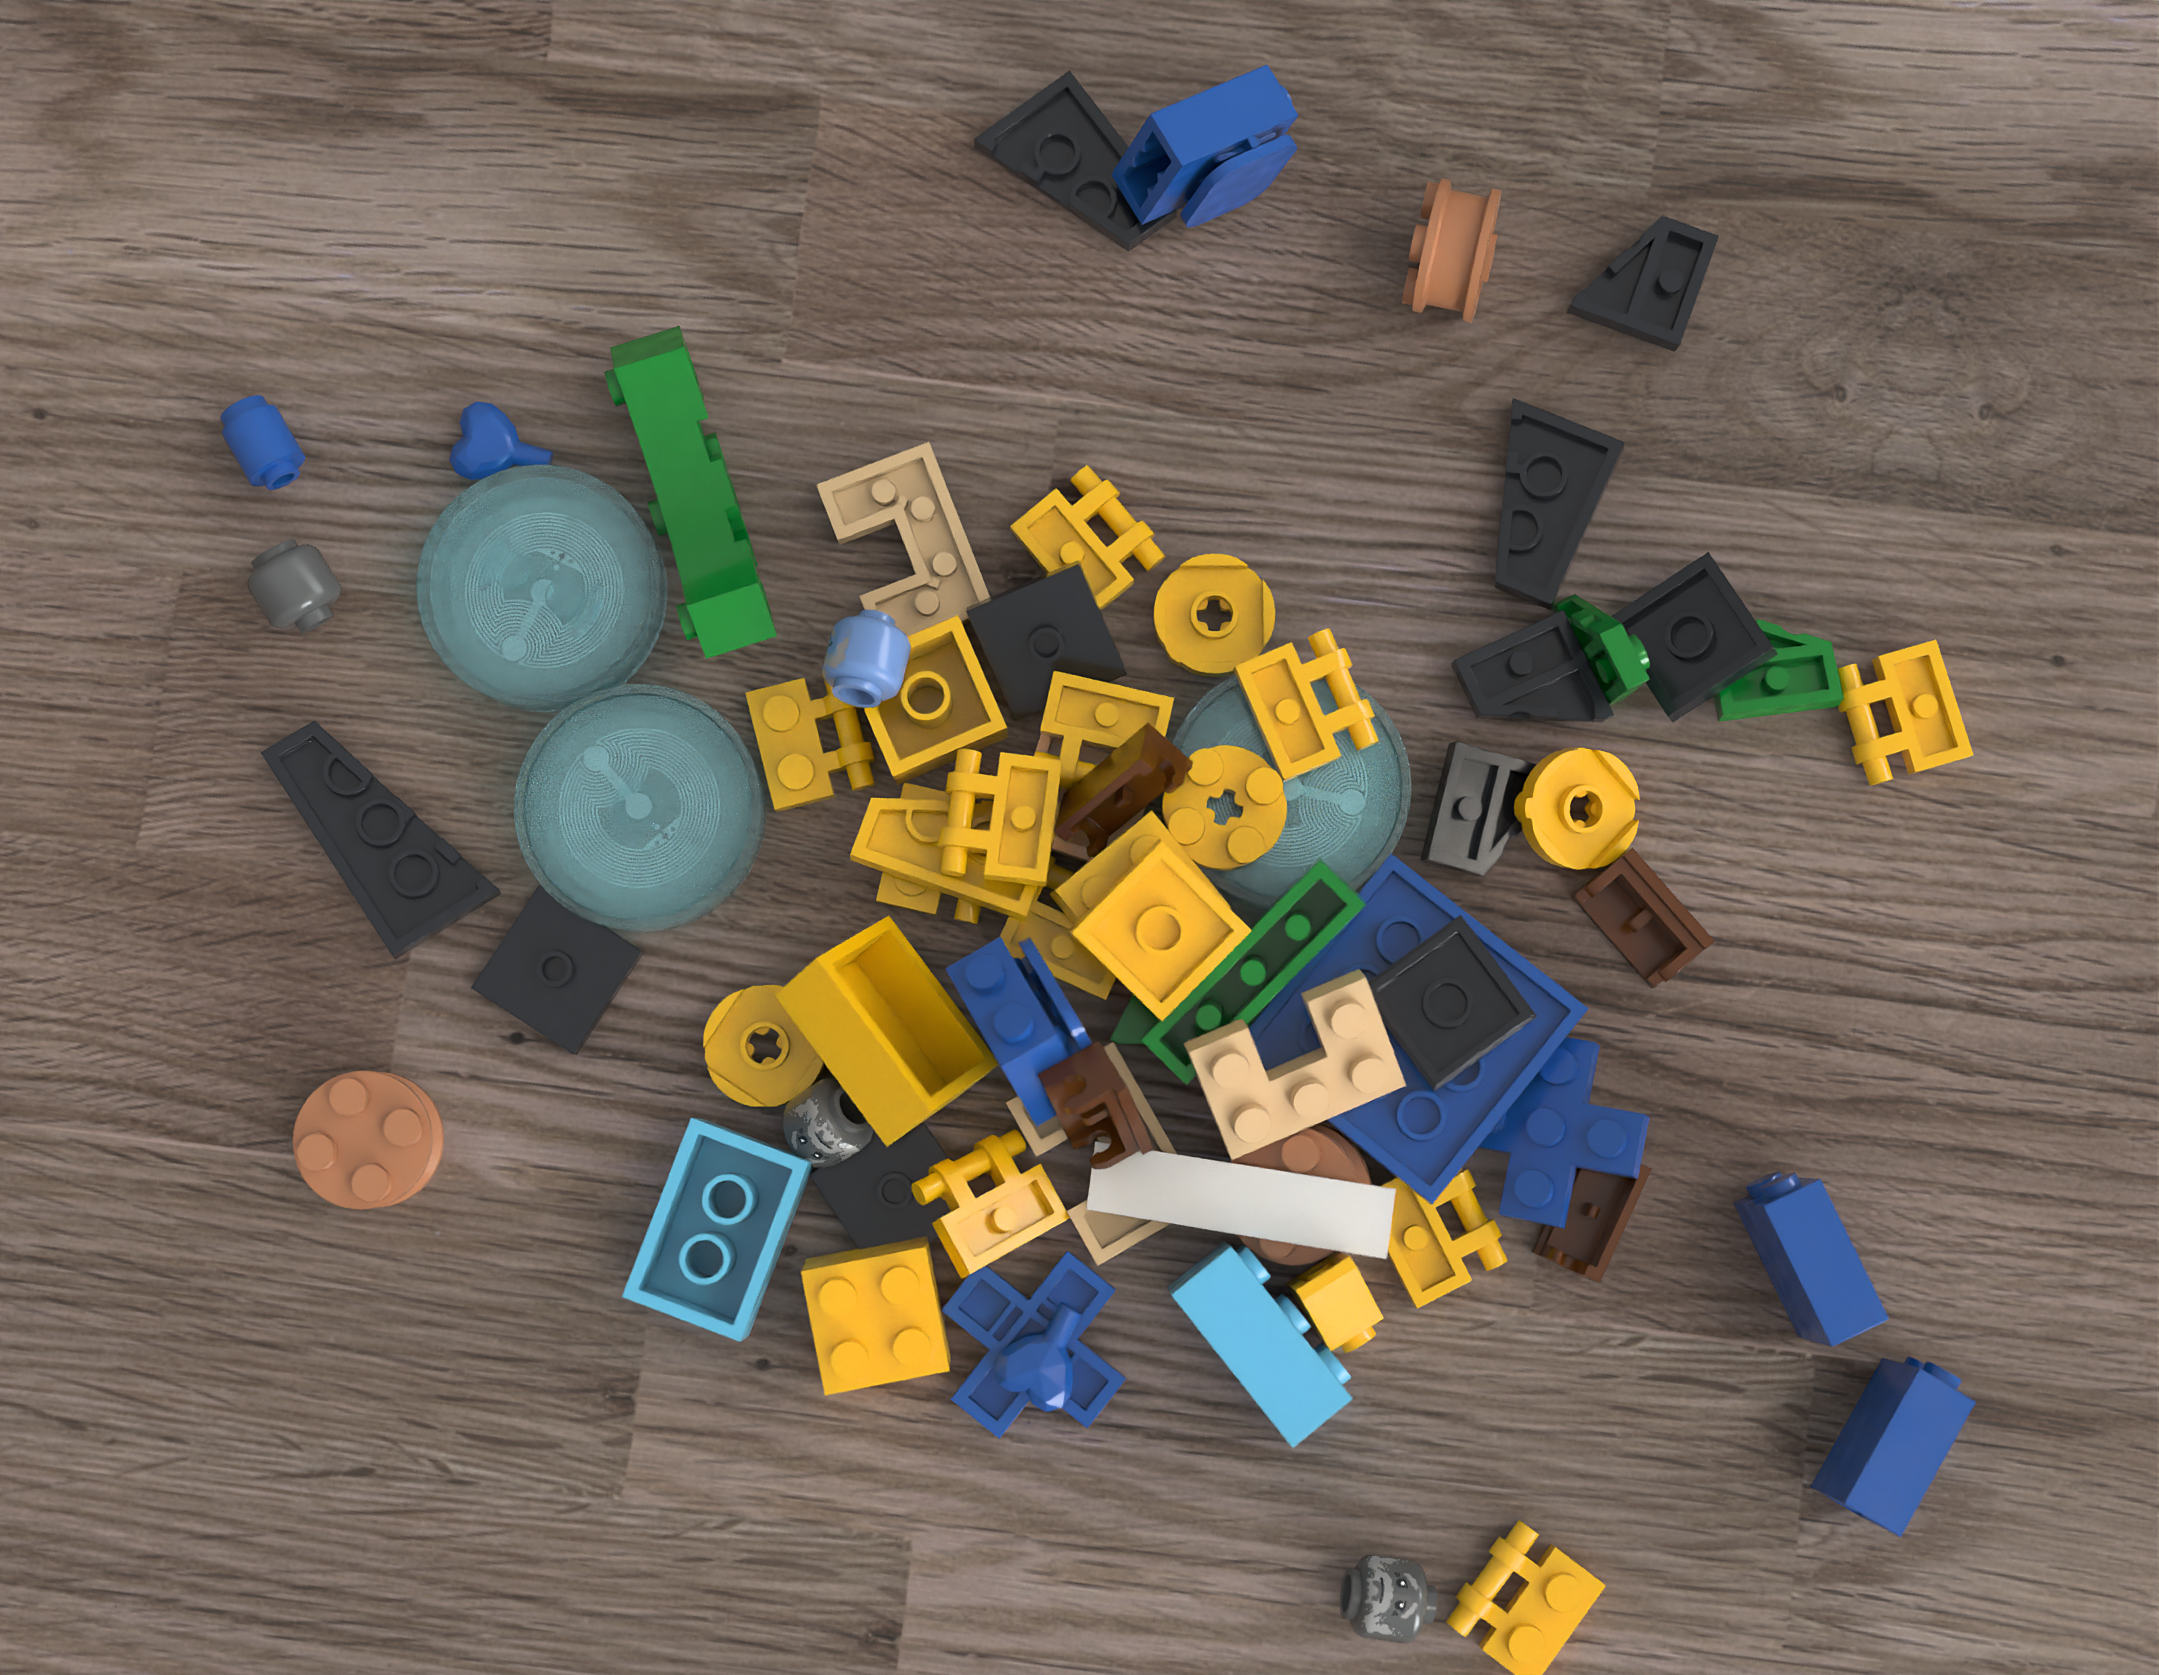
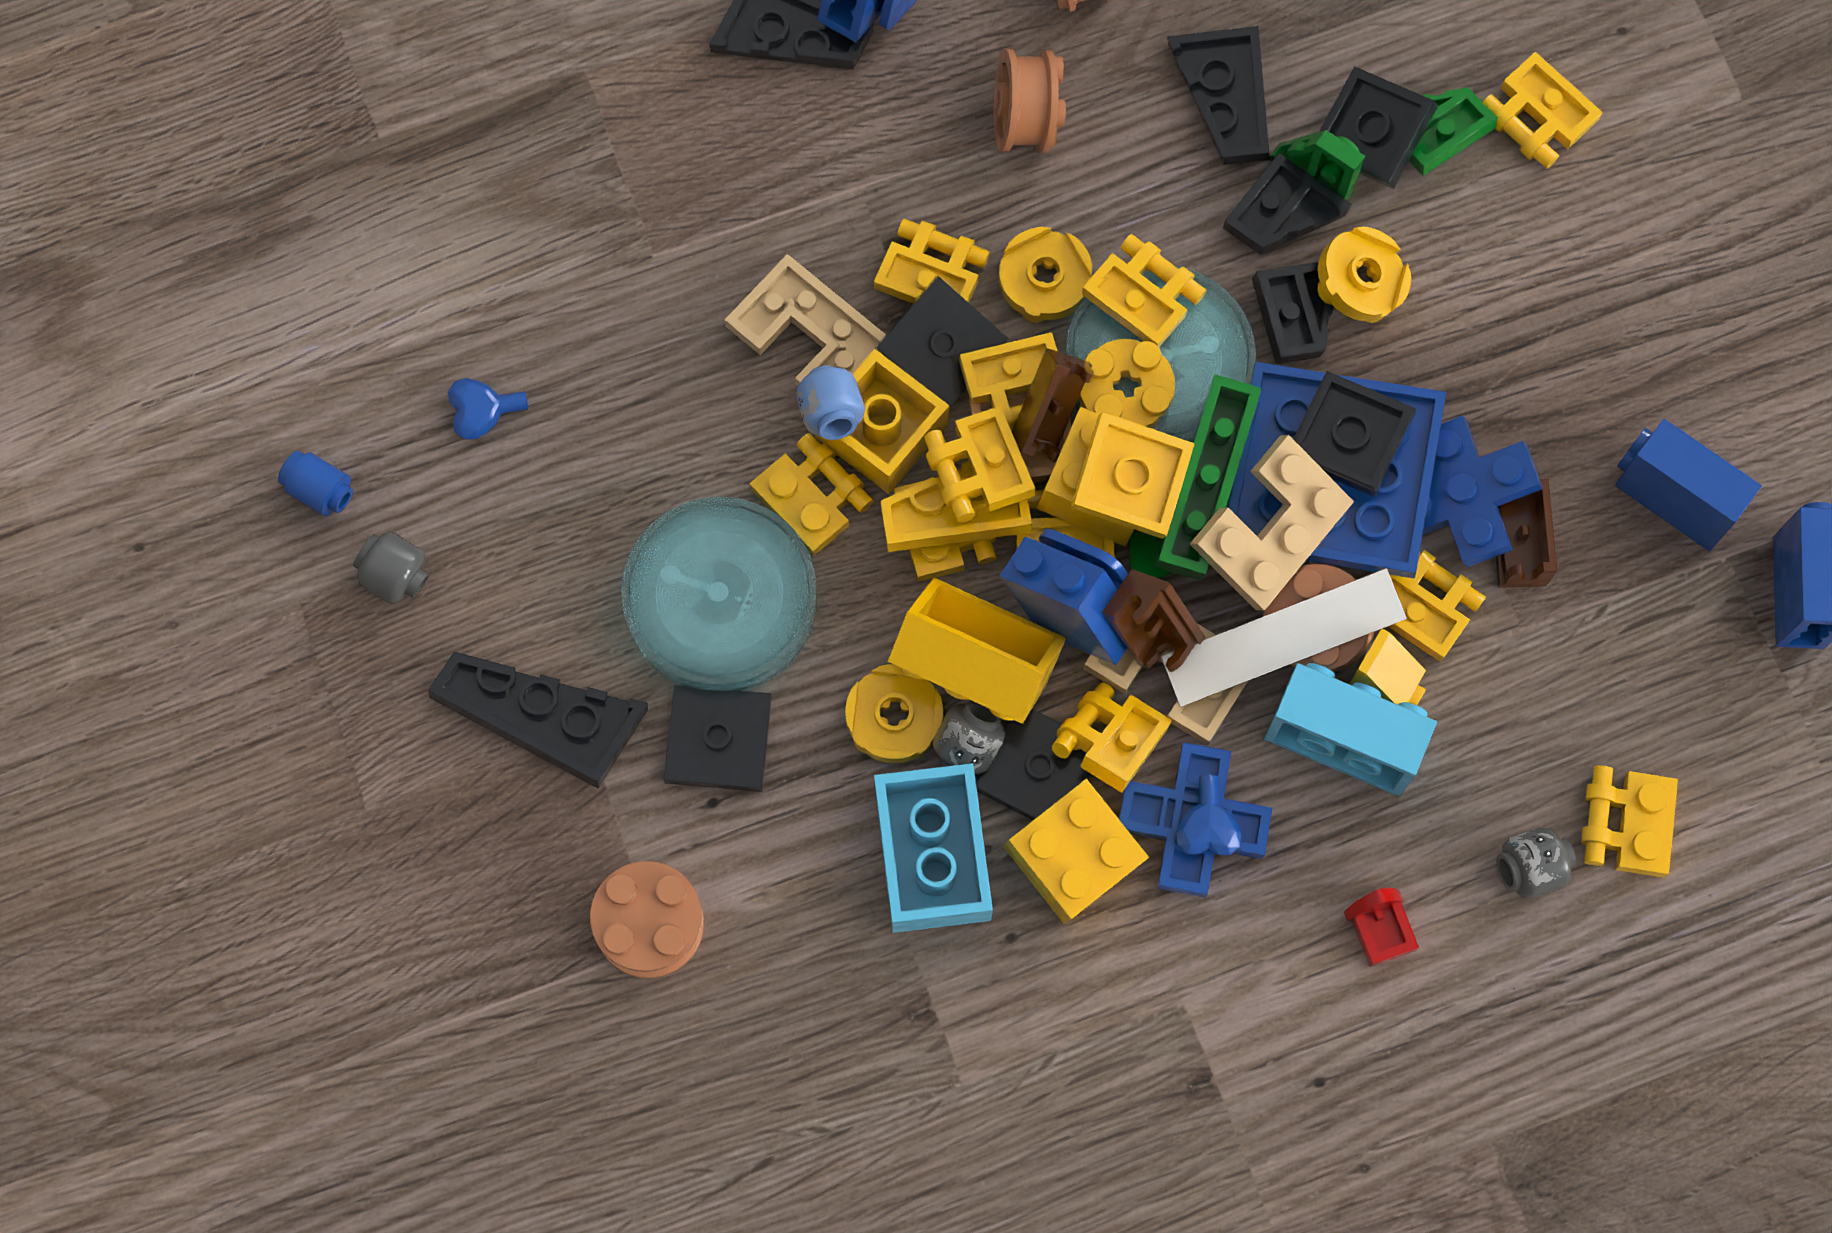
camera: 25 degrees left, 10 degrees down
(541, 587) = (567, 483): clear light blue brick -> none
(693, 492) = (643, 368): green brick -> none
(1178, 1573) = (1382, 925): none -> red tile
(1299, 400) = (1027, 100): none -> nougat wheel
(1642, 918) = (1446, 326): reddish brown hinge -> none

